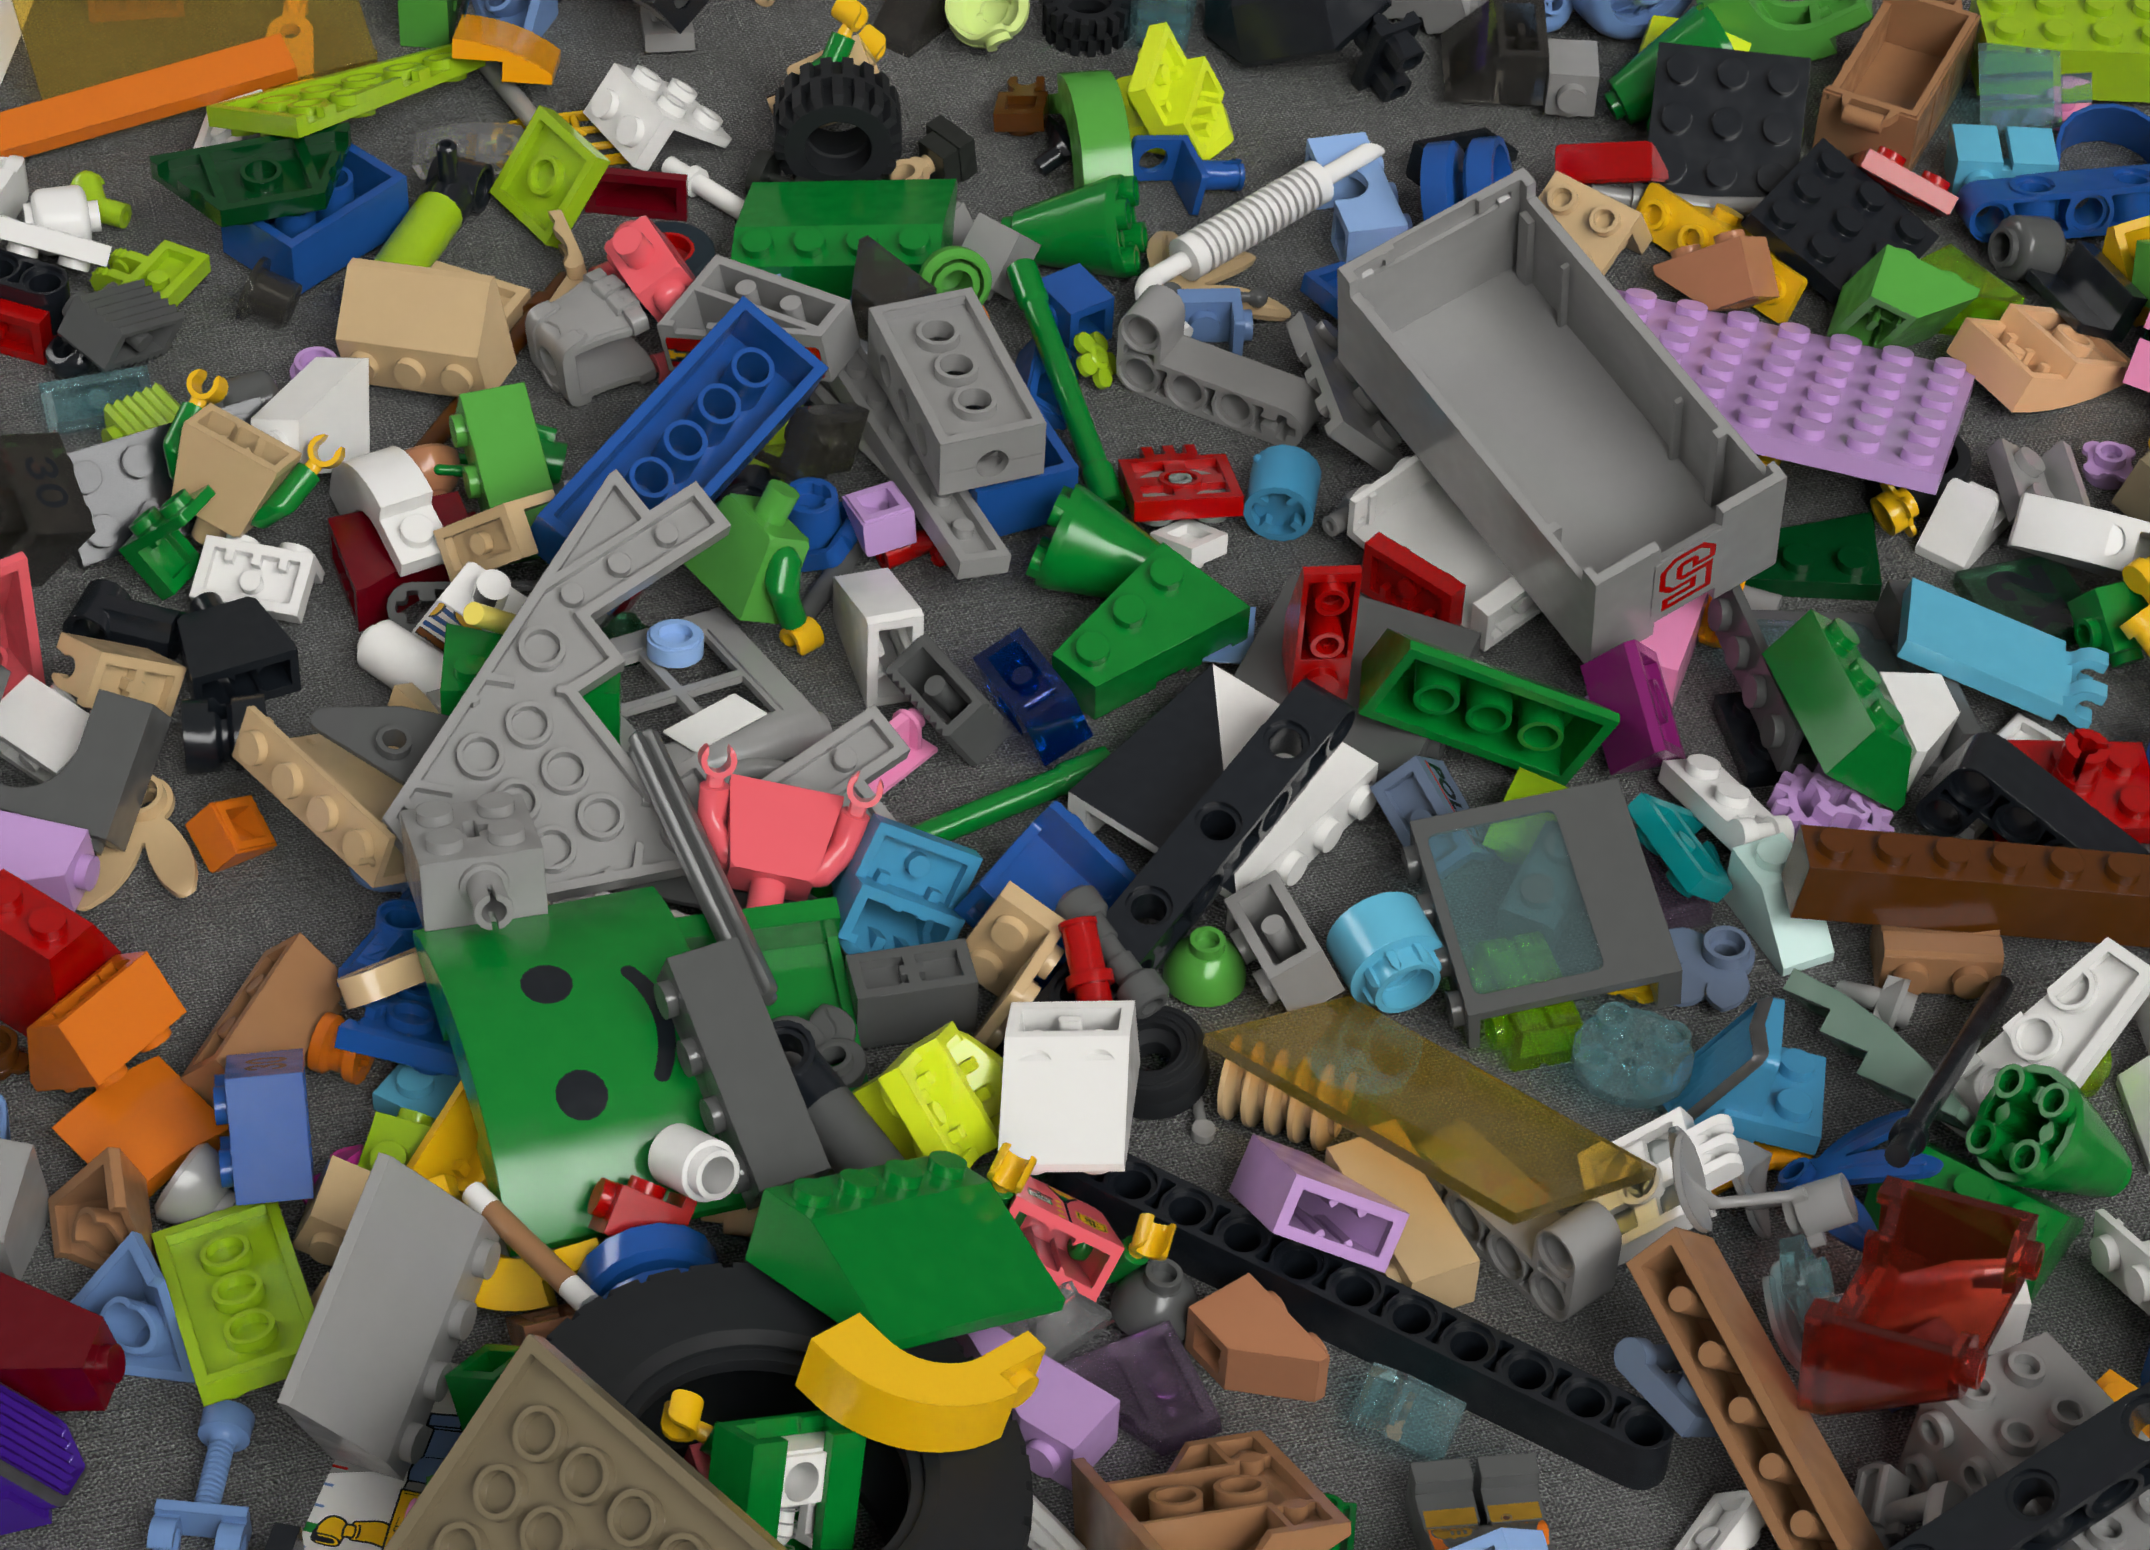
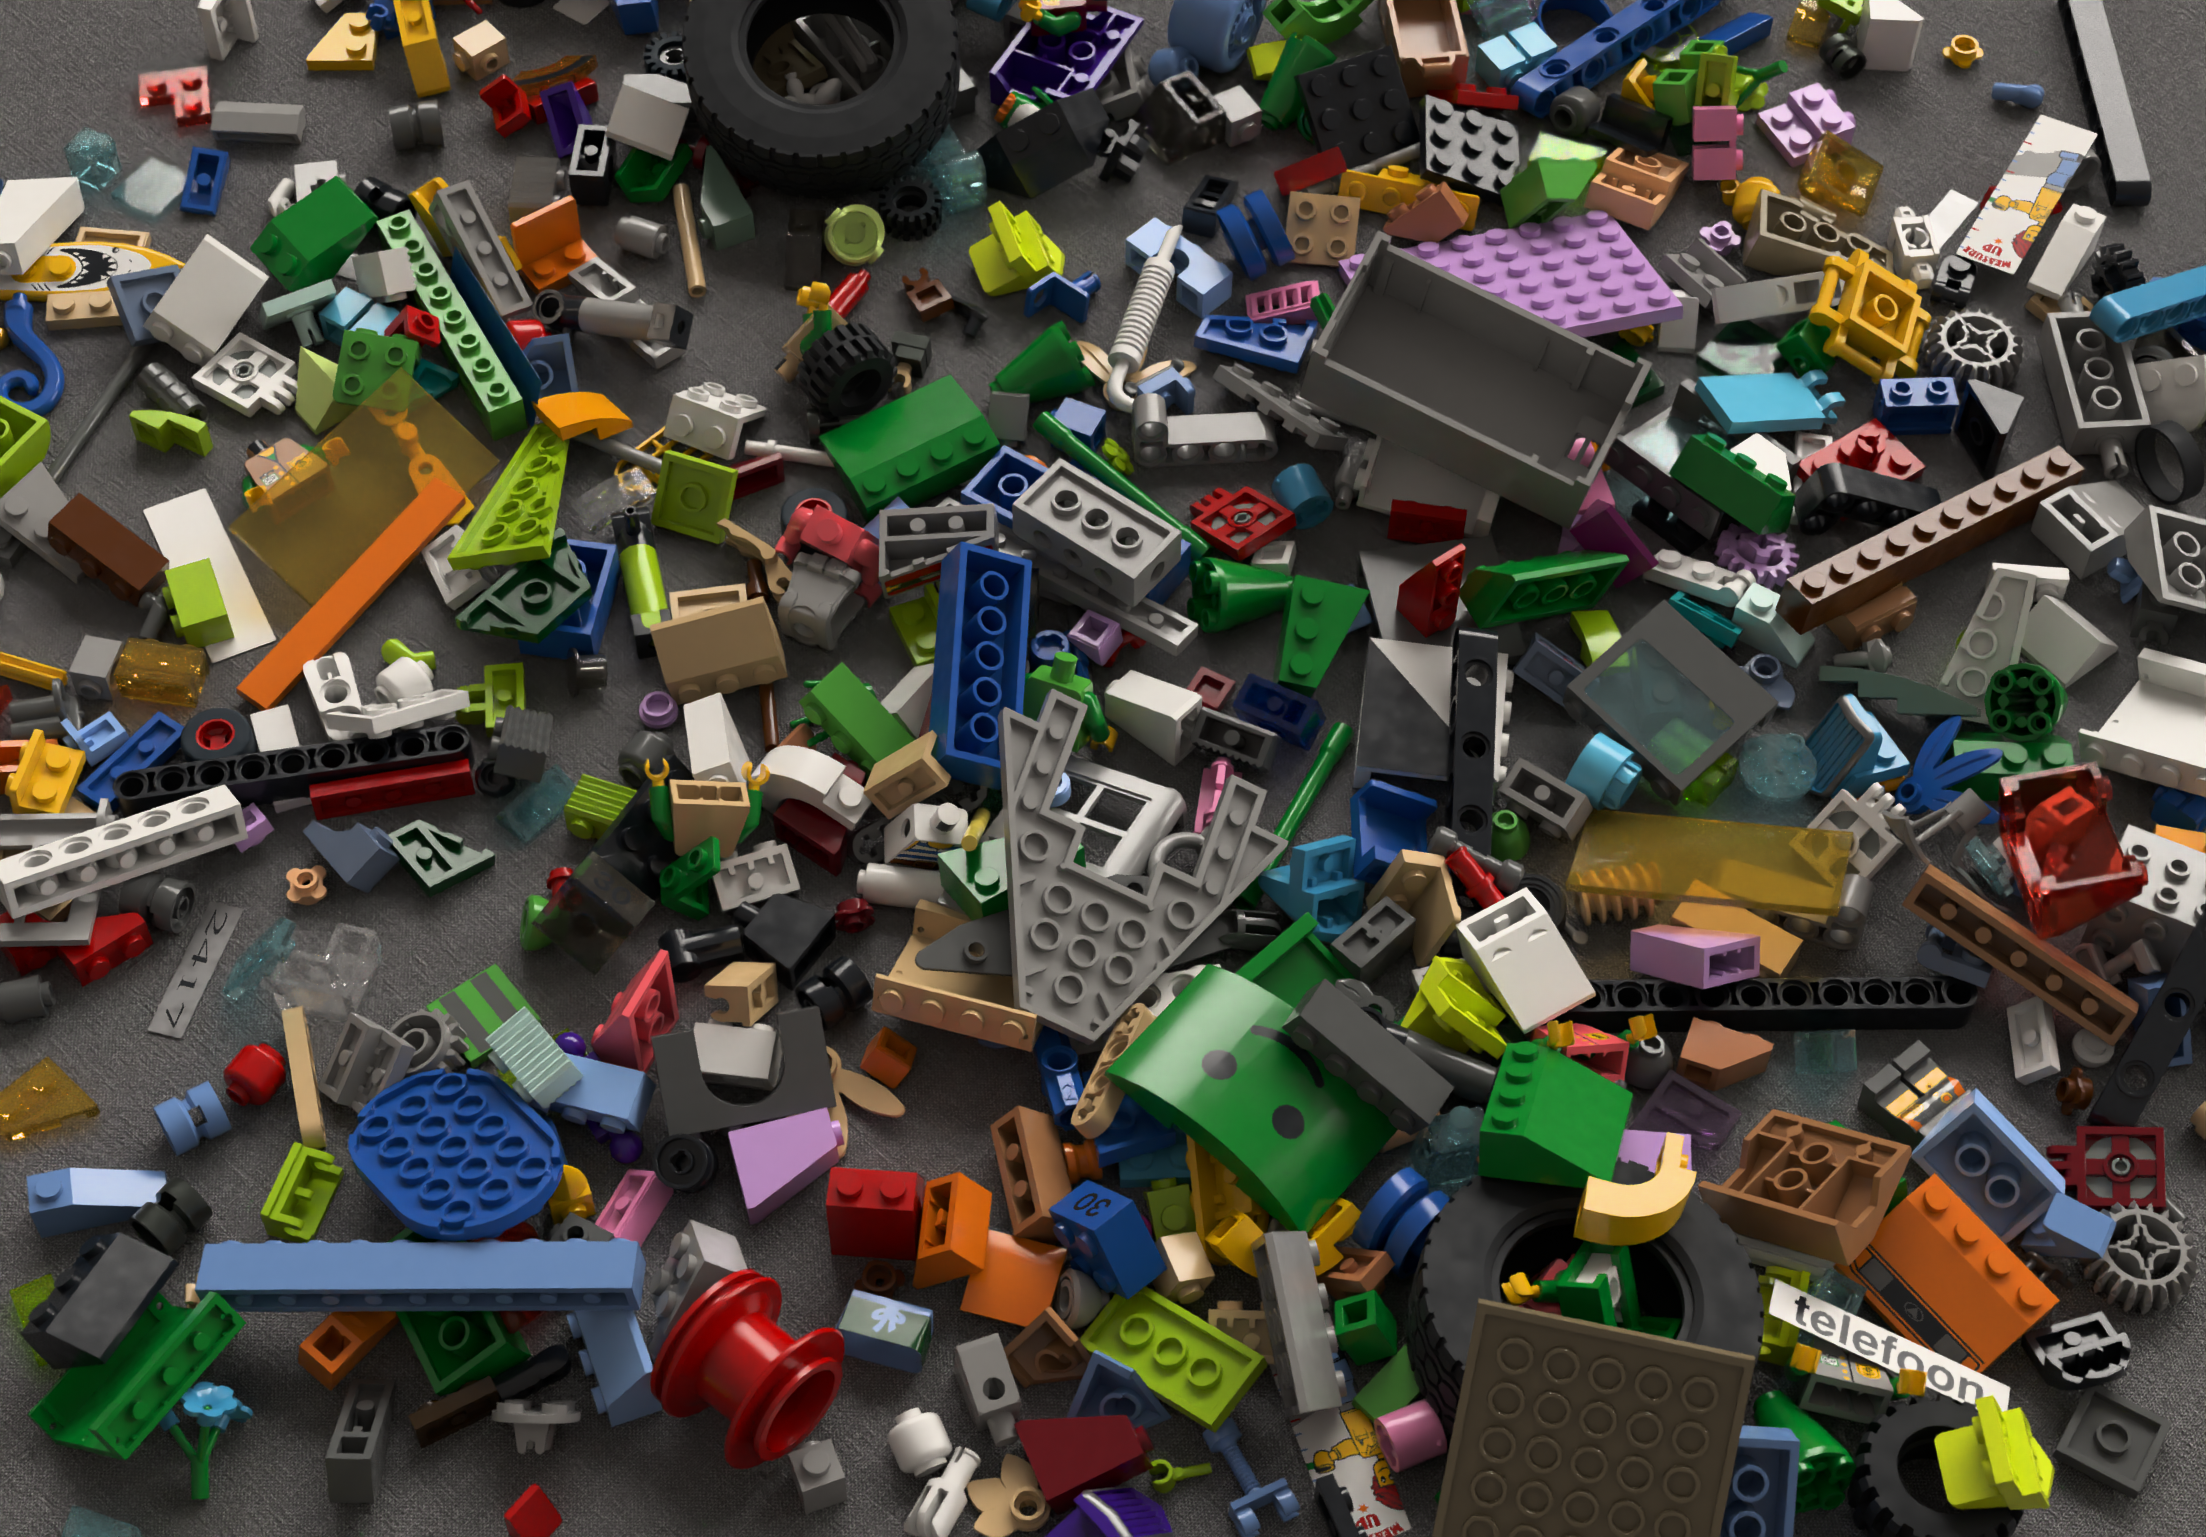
camera: 30 degrees left, 10 degrees up
(125, 1440) = (1175, 1474): none -> lime hand
(329, 670) = (854, 915): none -> dark red plate
(474, 862) = (1111, 1010): light grey brick -> none
(529, 1246) = (1327, 1231): medium nougat bar -> none
(634, 1205) = (1362, 1173): red brick -> none
(693, 1163) = (1380, 1128): white brick -> none
(697, 853) = (1217, 930): dark grey axle -> none
(715, 722) = (1123, 830): white sticker -> none
(778, 835) = (1245, 889): coral torso -> none
(882, 280) = (992, 481): clear smoke slope -> none
(927, 68) = (849, 292): none -> red cylinder
(957, 269) = (1025, 453): bright green brick -> none
(969, 637) = (1213, 688): none -> dark red plate
(1095, 124) = (998, 292): bright green arch -> none
(1910, 1134) = (1984, 745): black bar -> none

